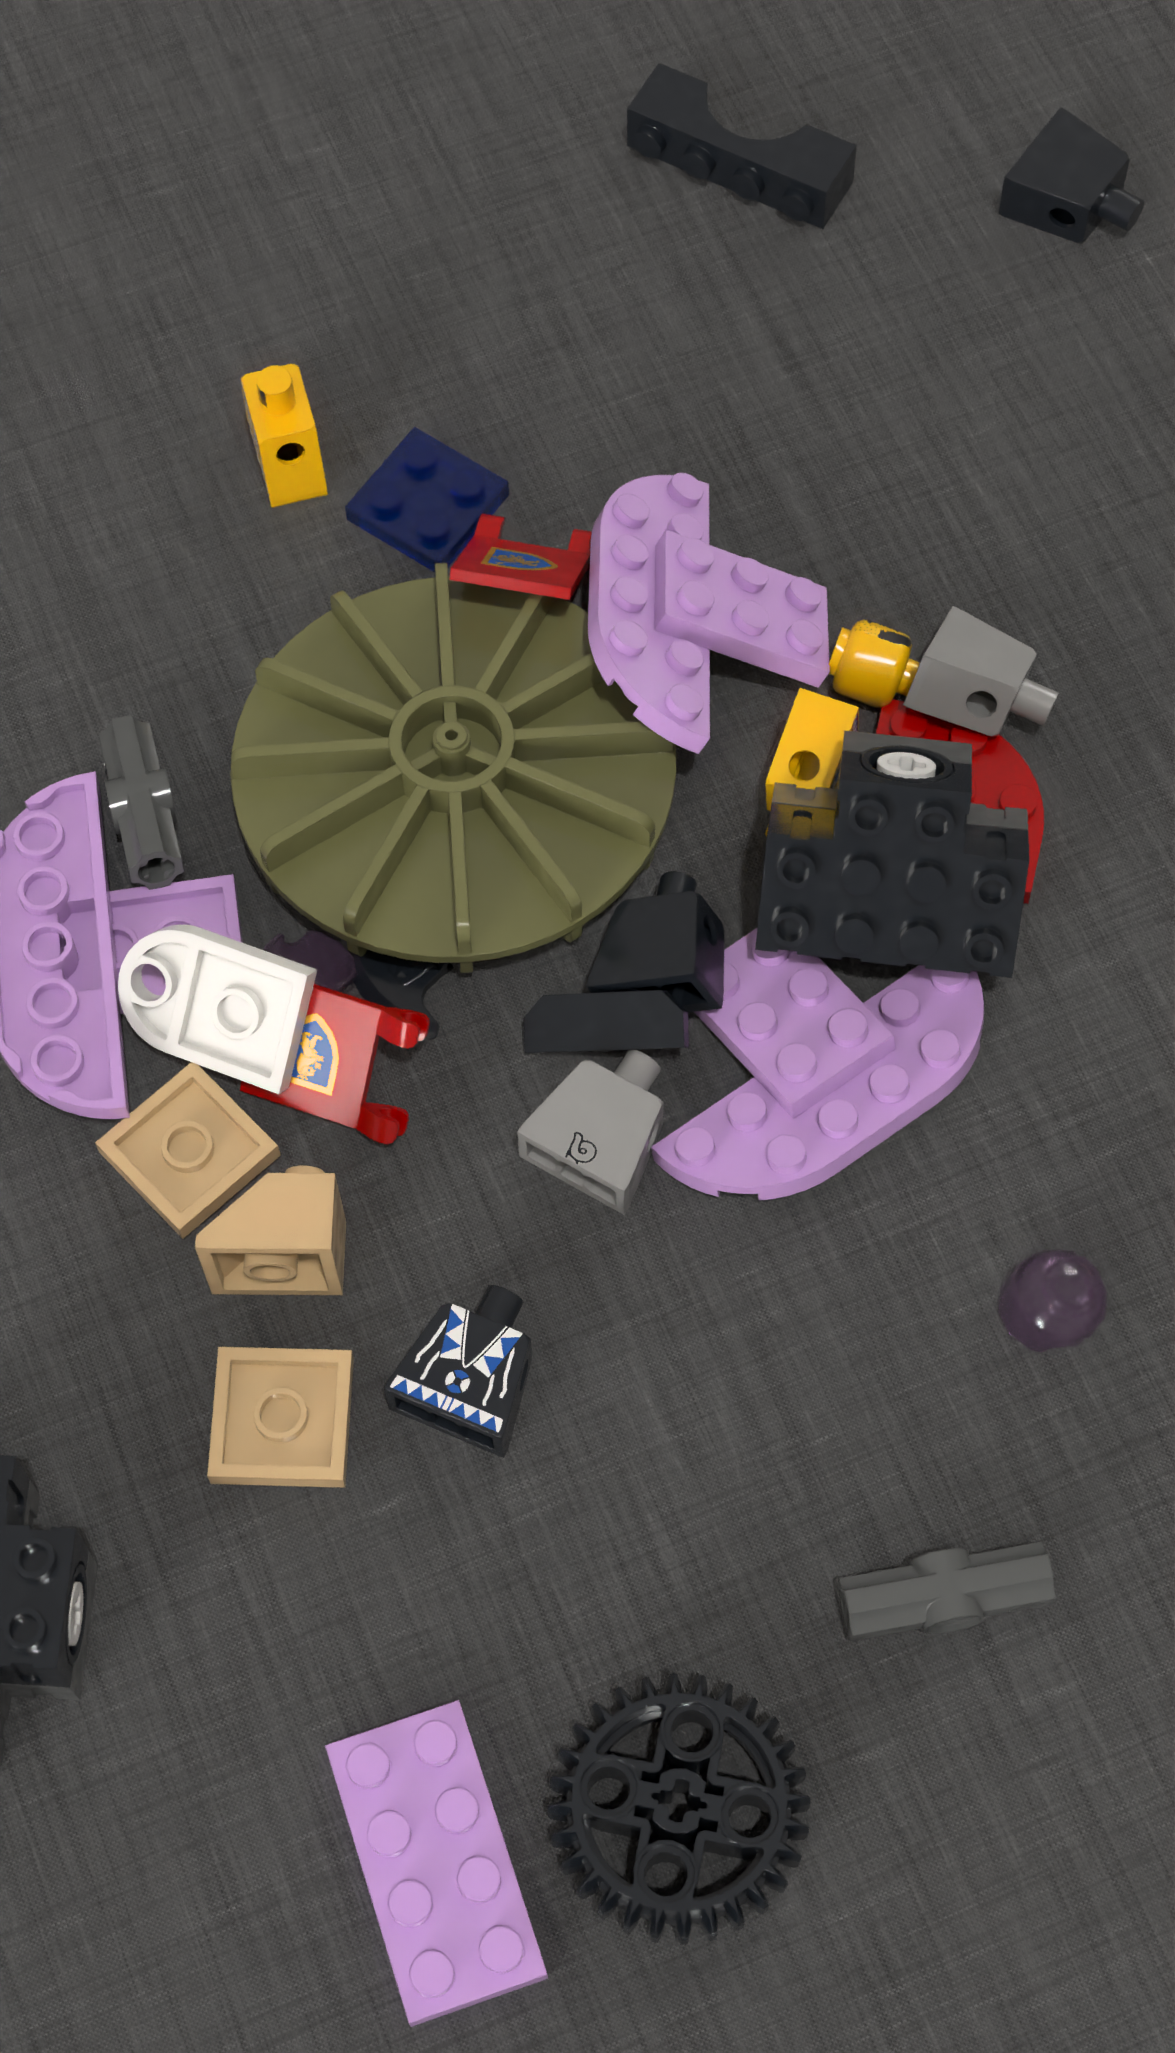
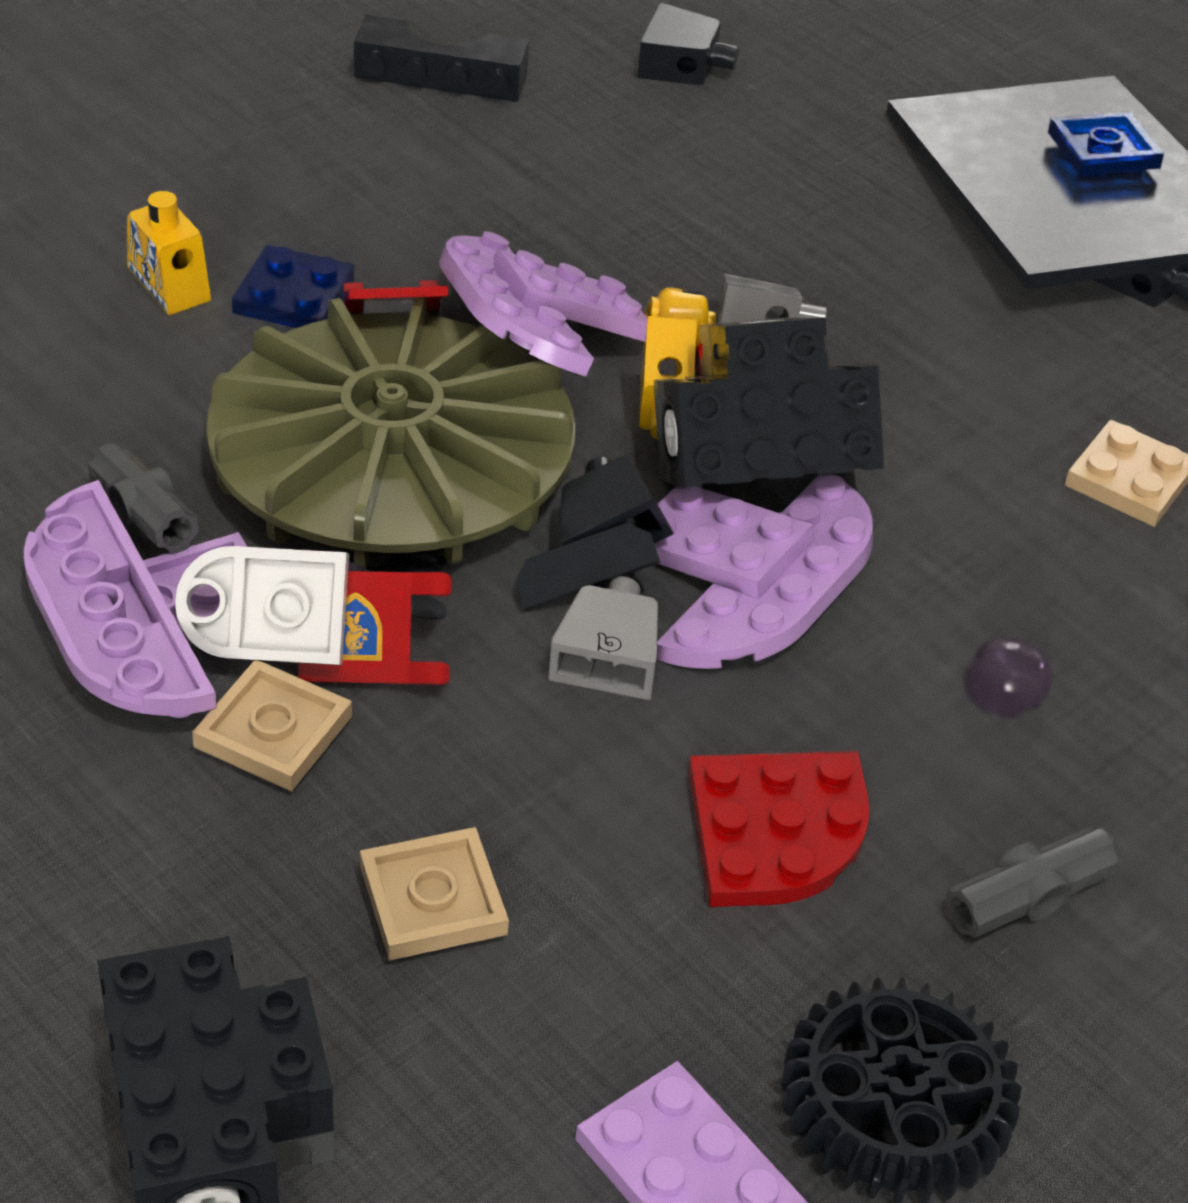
camera: 25 degrees left, 20 degrees down
(278, 1238) = (387, 755): tan slope -> none
(467, 1372) = (579, 825): torso -> none
(696, 1426) = (777, 823): none -> red plate

